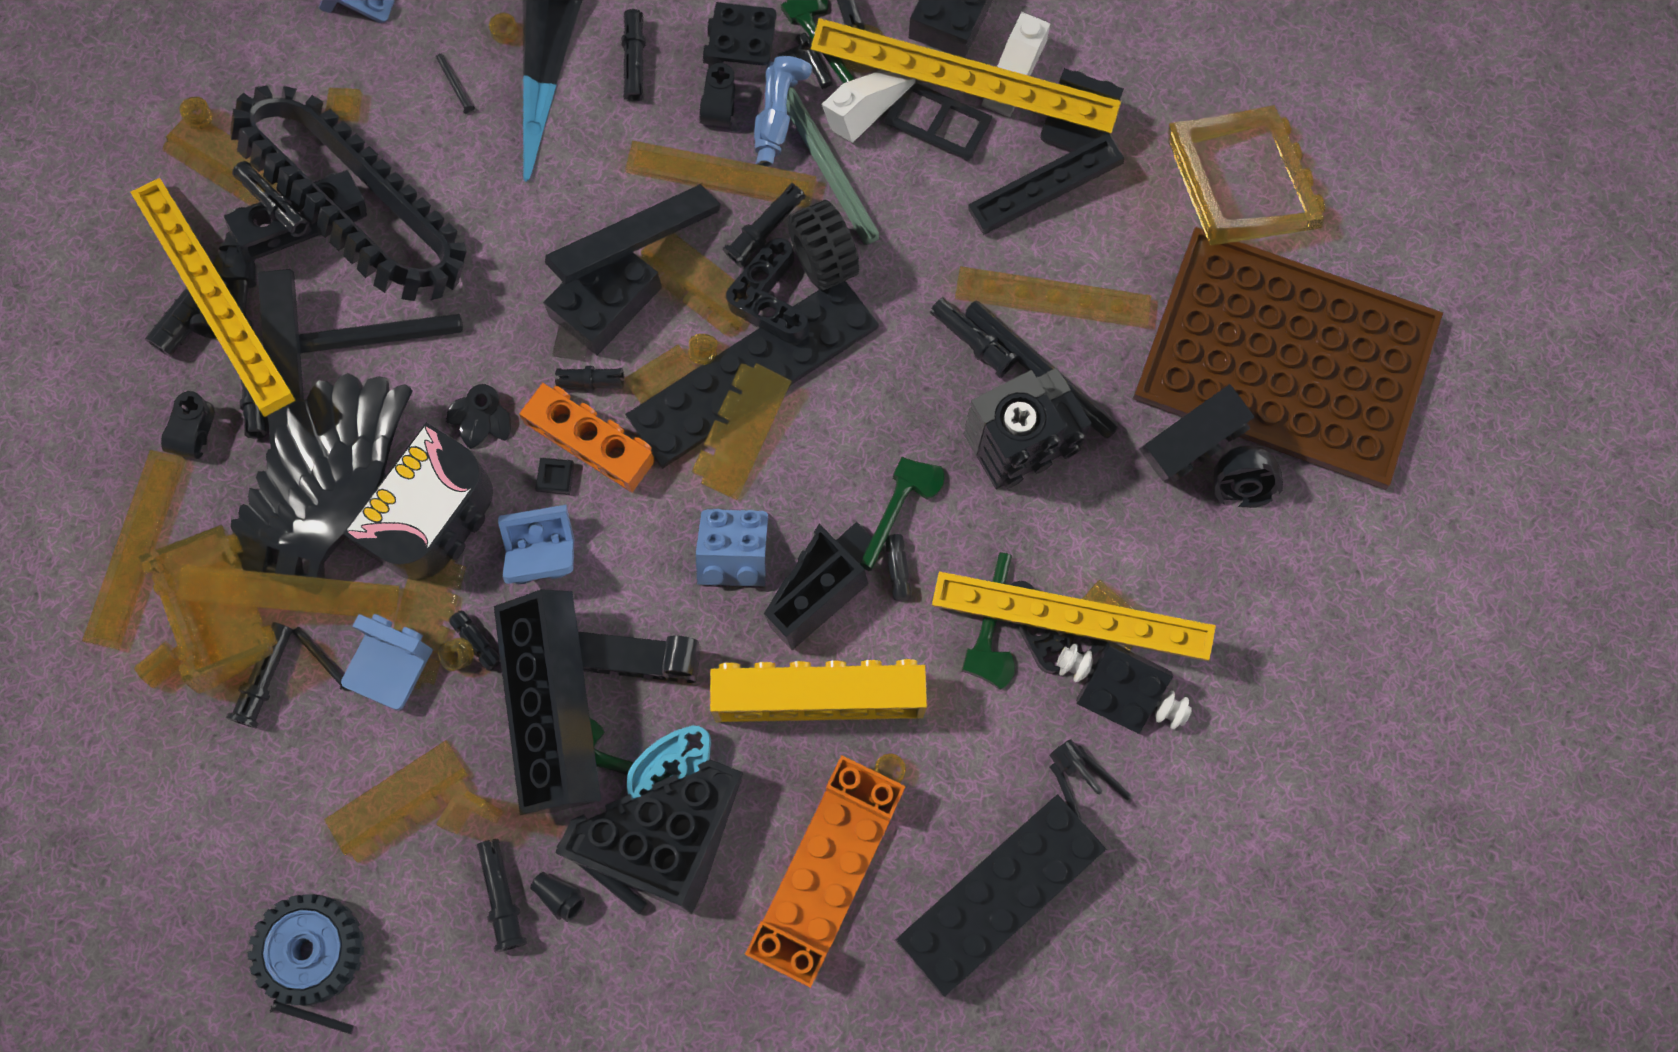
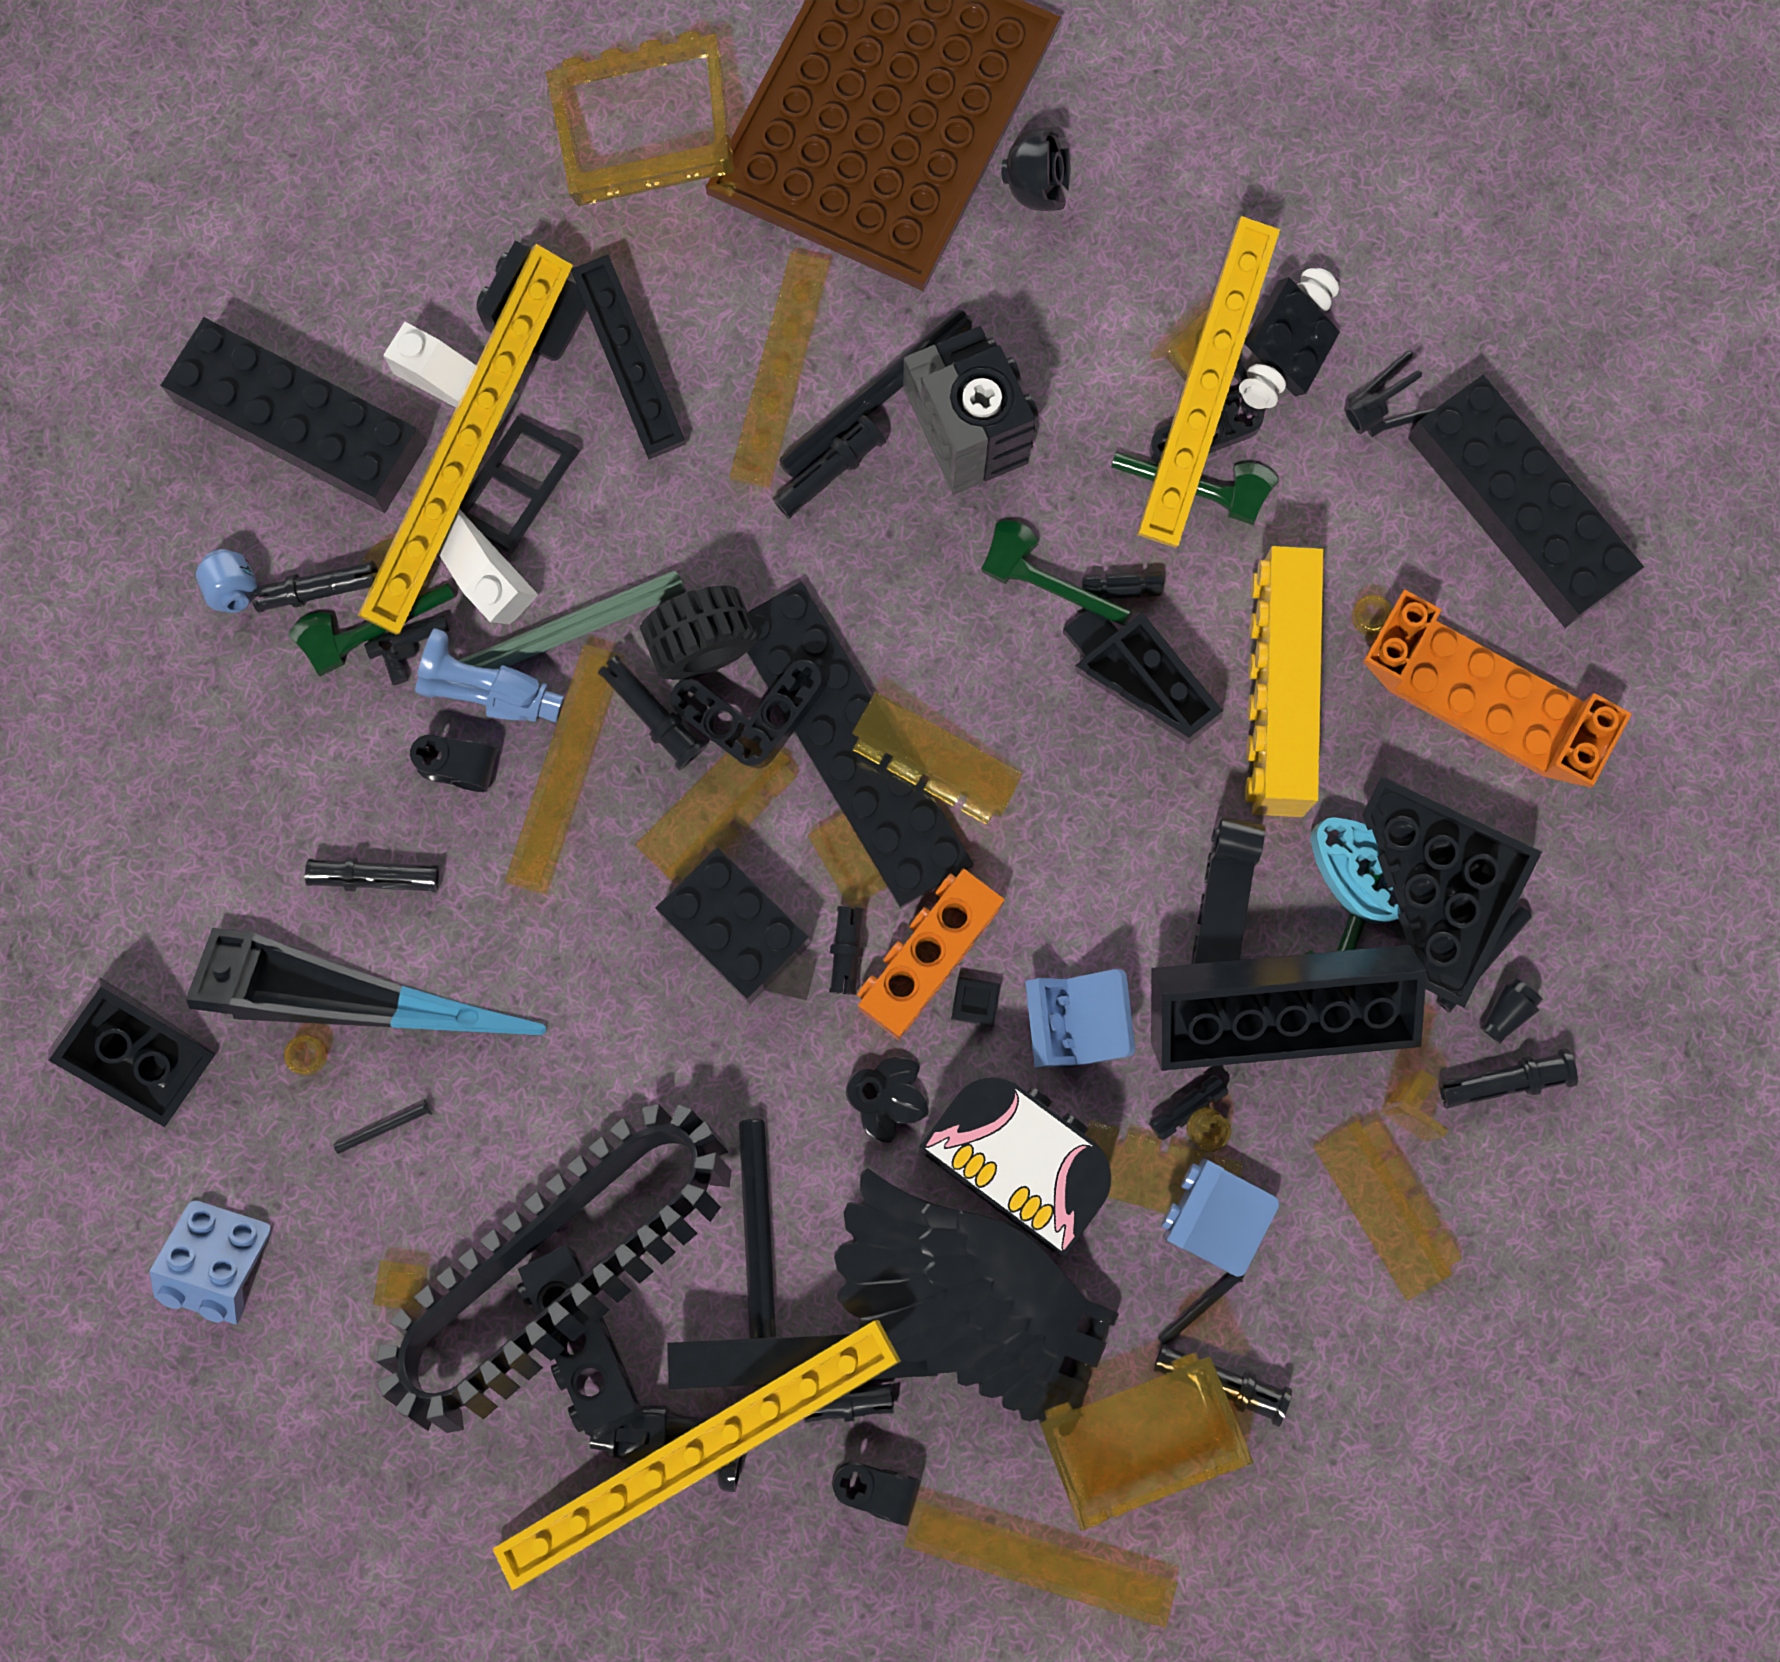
camera: 85 degrees left, 5 degrees up
(159, 664) = (1203, 1518): clear yellow piece -> none
(174, 324) = (721, 1515): black axle -> none
(194, 104) = (377, 1502): clear yellow bush -> none
(210, 154) = (454, 1468): clear yellow windscreen -> none
(278, 946) = (1602, 1325): wheel -> none
(287, 592) = (1124, 1342): clear yellow tile -> none
(289, 218) = (607, 1330): black pin -> none
(312, 1017) = (1643, 1312): black piece -> none
(631, 234) = (661, 876): black tile -> none
(702, 348) = (808, 797): clear yellow bush -> none
(732, 547) = (1086, 779): medium blue bracket -> none
(740, 34) = (369, 725): black bracket -> none
(1198, 434) = (993, 212): black brick -> none

